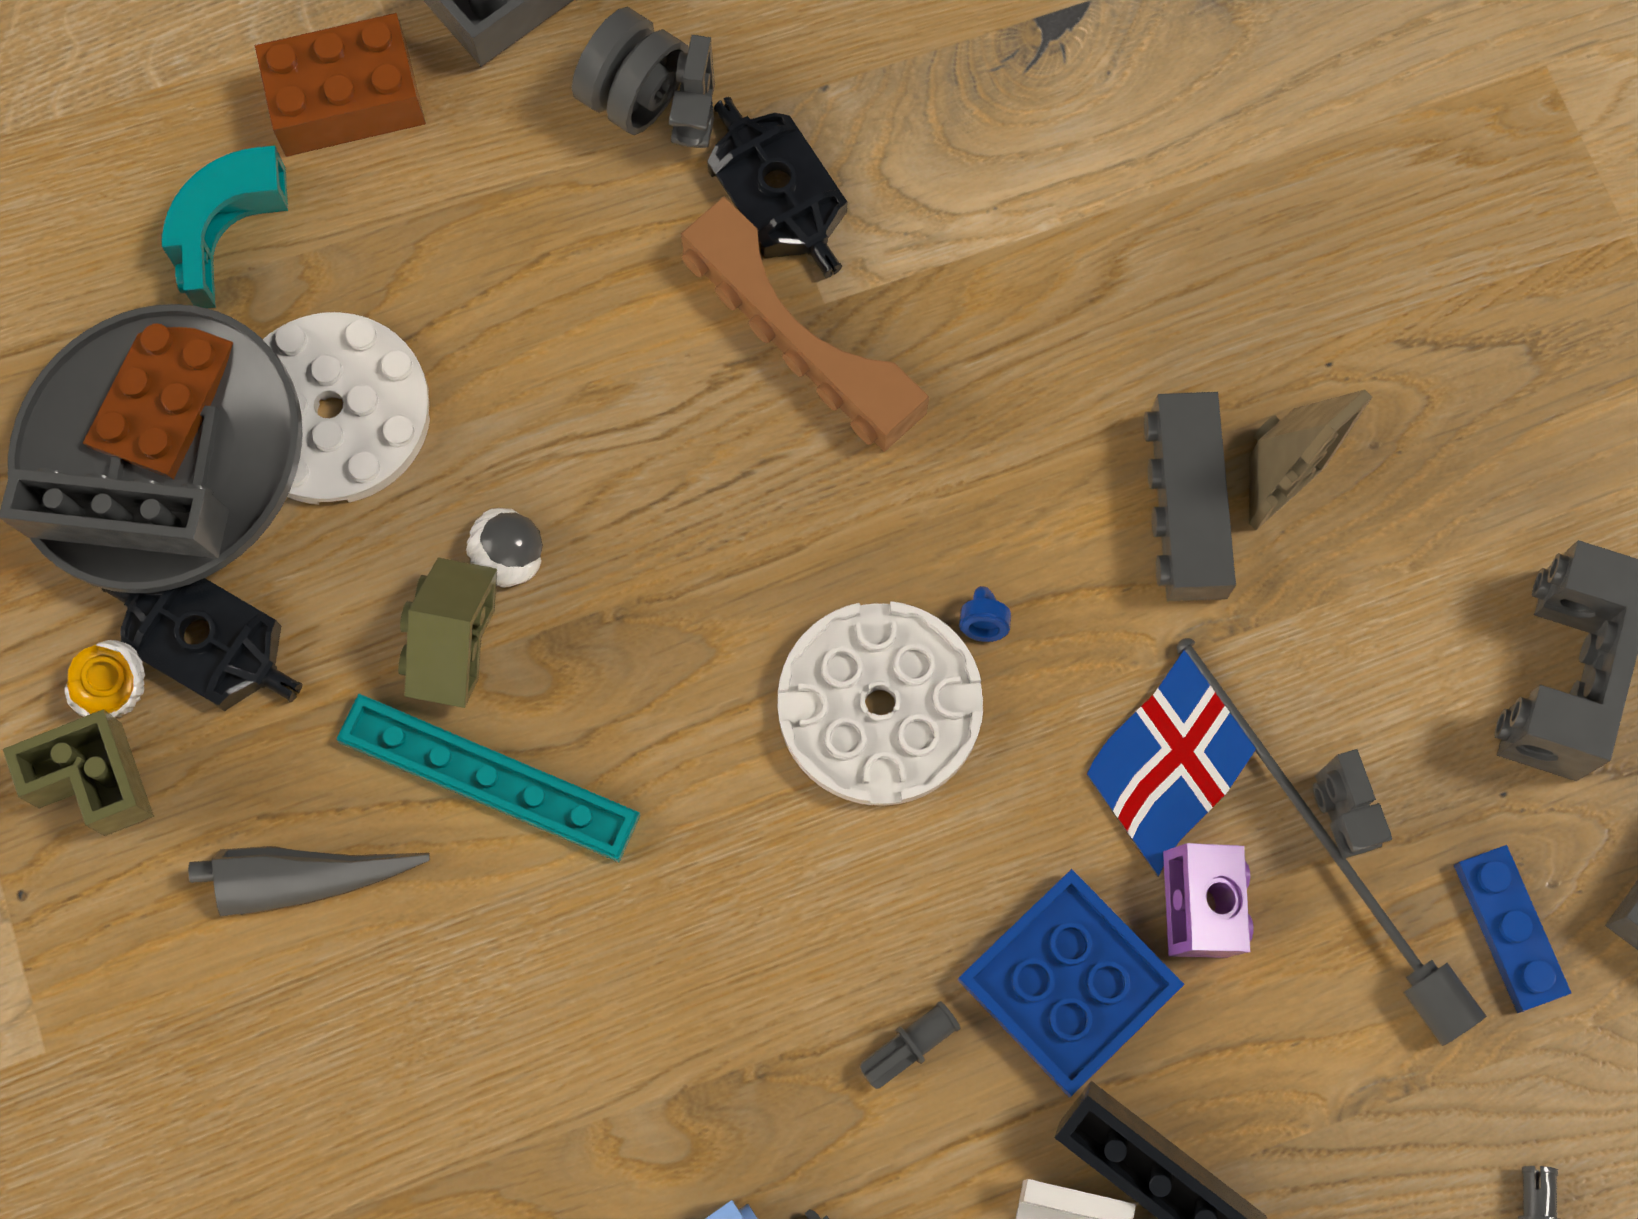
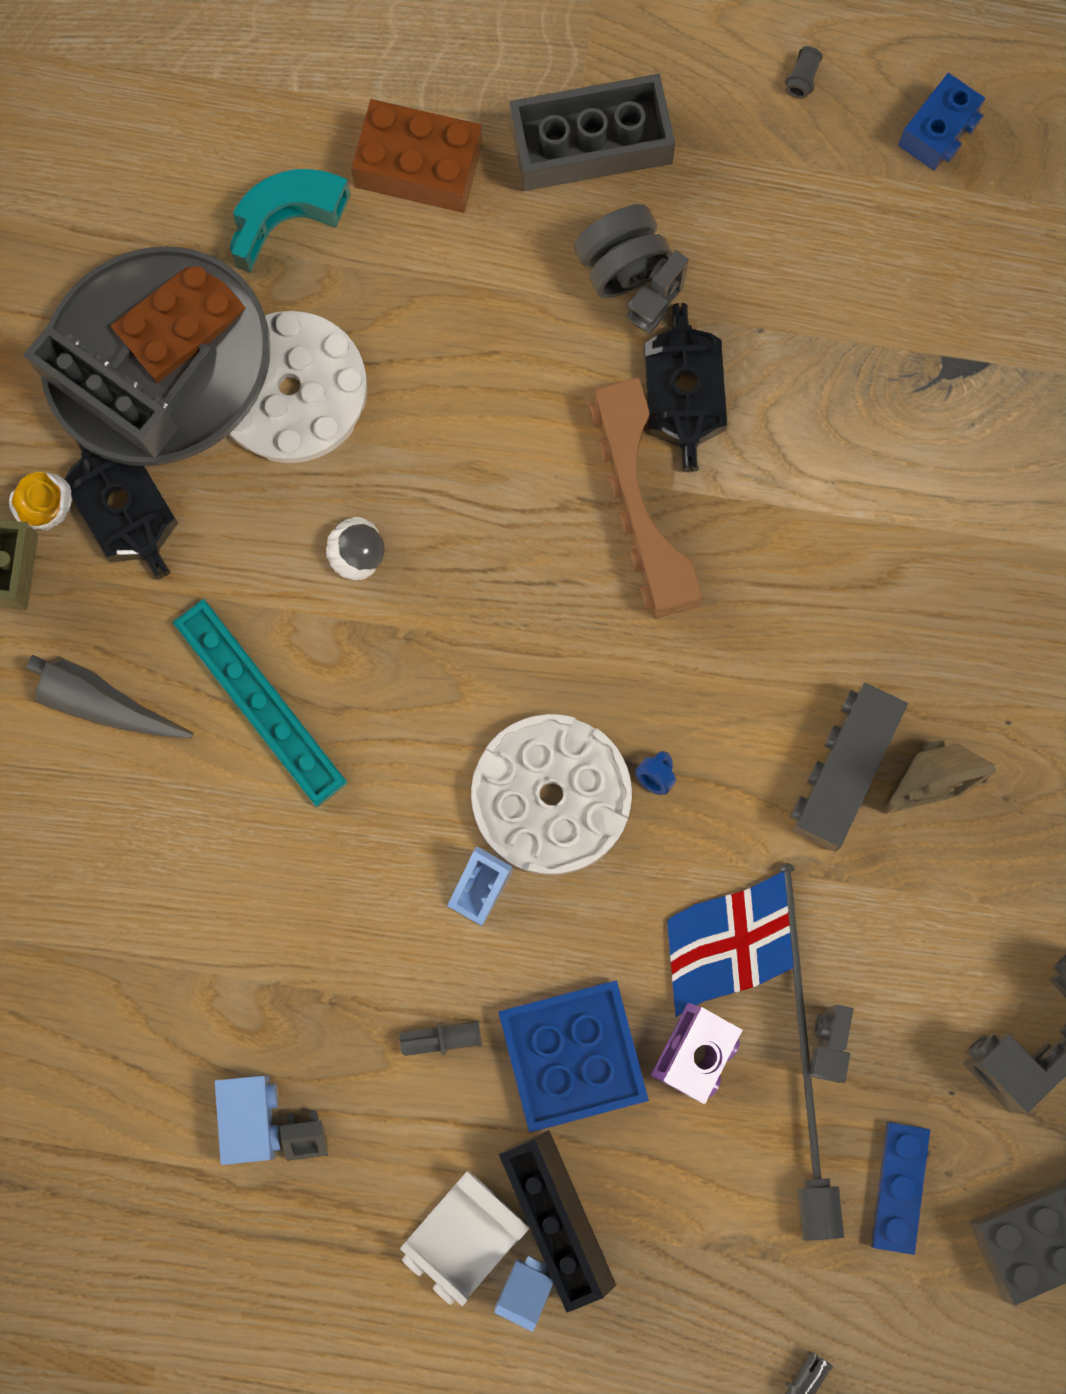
camera: 30 degrees right, 5 degrees up
(446, 631) = (282, 588): olive brick -> none
(858, 846) = (480, 886): none -> light blue slope

